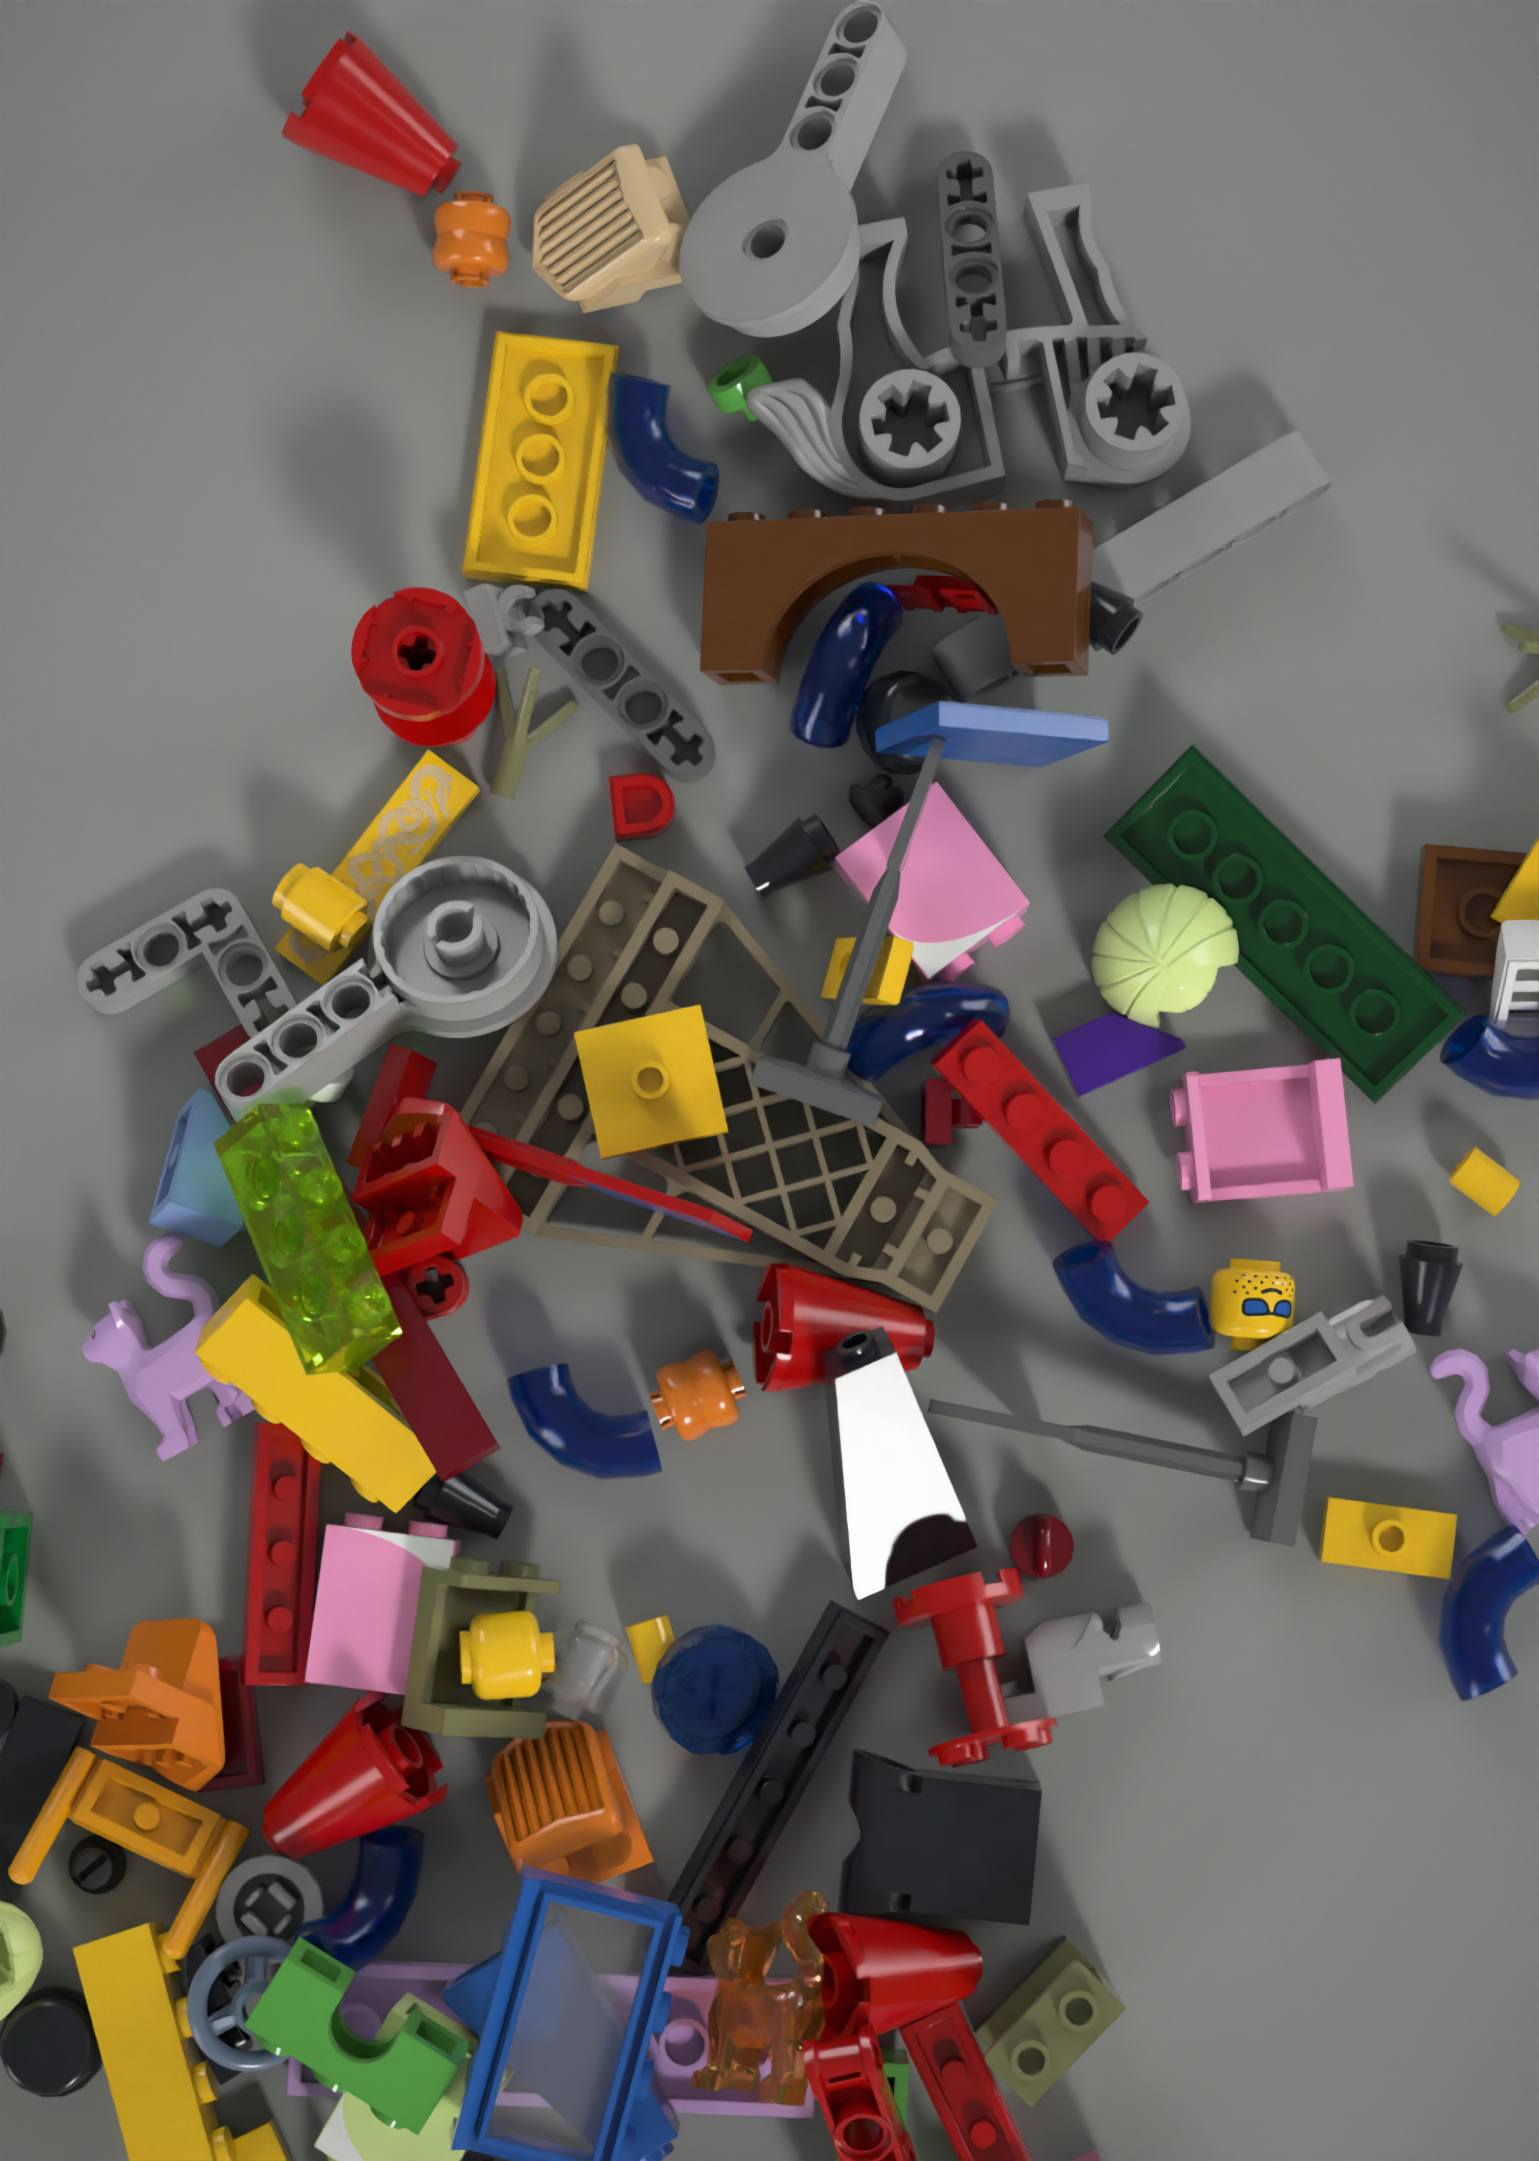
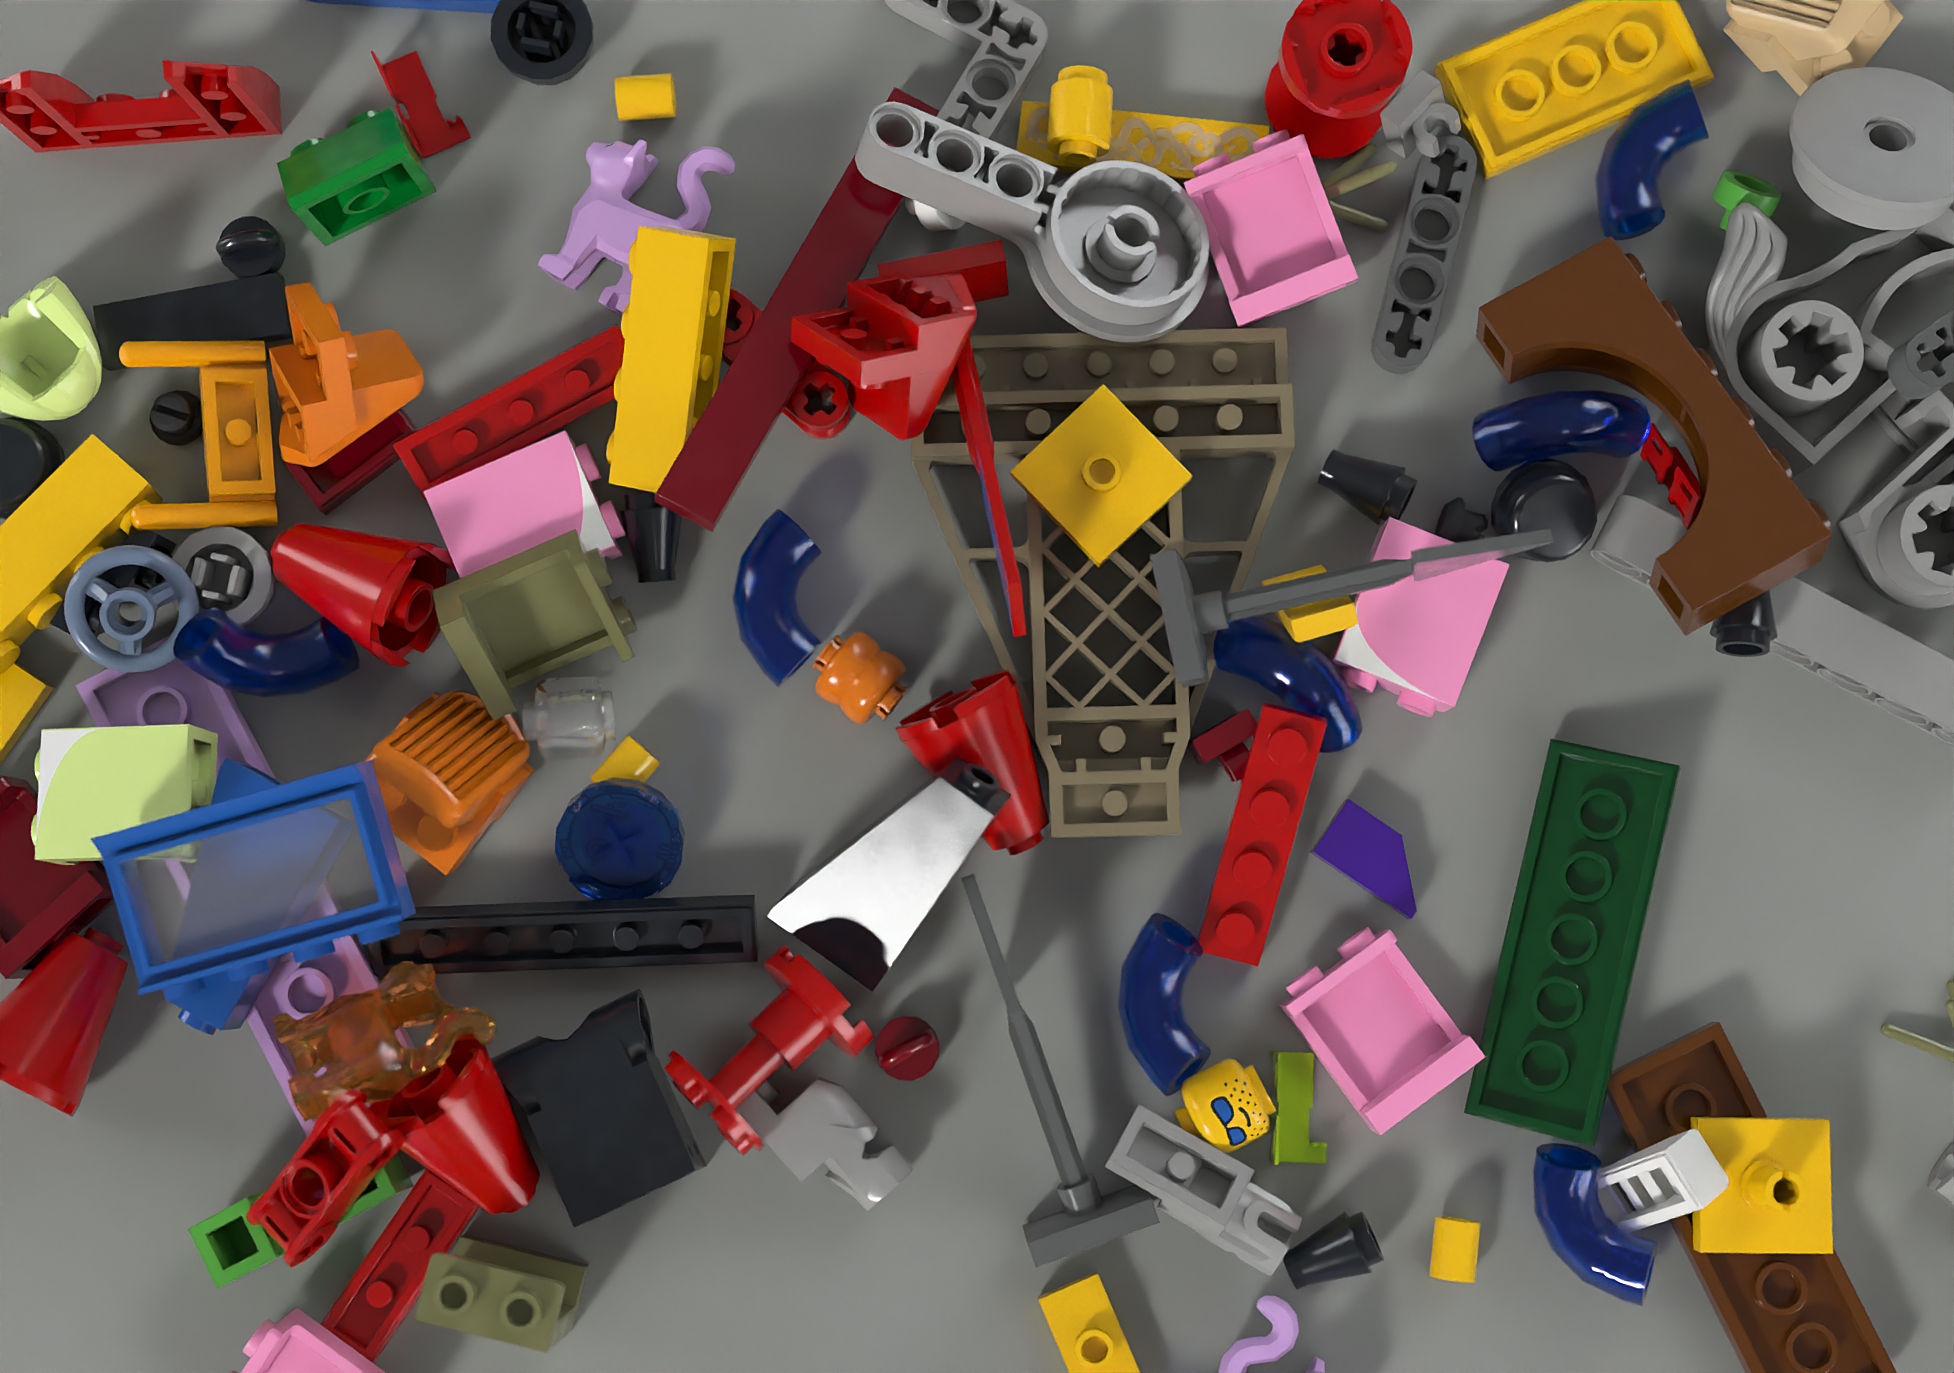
camera: 55 degrees right, 0 degrees up
(65, 1276) = (645, 97): none -> yellow hinge
(193, 1186) = (795, 158): medium blue slope -> none
(307, 1238) = (791, 262): clear neon green brick -> none
(394, 2075) = (134, 654): bright green arch -> none
(505, 1655) = (542, 642): yellow head -> none
(523, 805) = (1270, 228): none -> bright pink panel
(640, 806) = (1331, 332): red tile -> none
(992, 734) = (1582, 585): blue tile -> none
(1162, 951) = (1482, 848): yellowish green hair -> none
(1277, 1238) = (1294, 1095): none -> lime piece

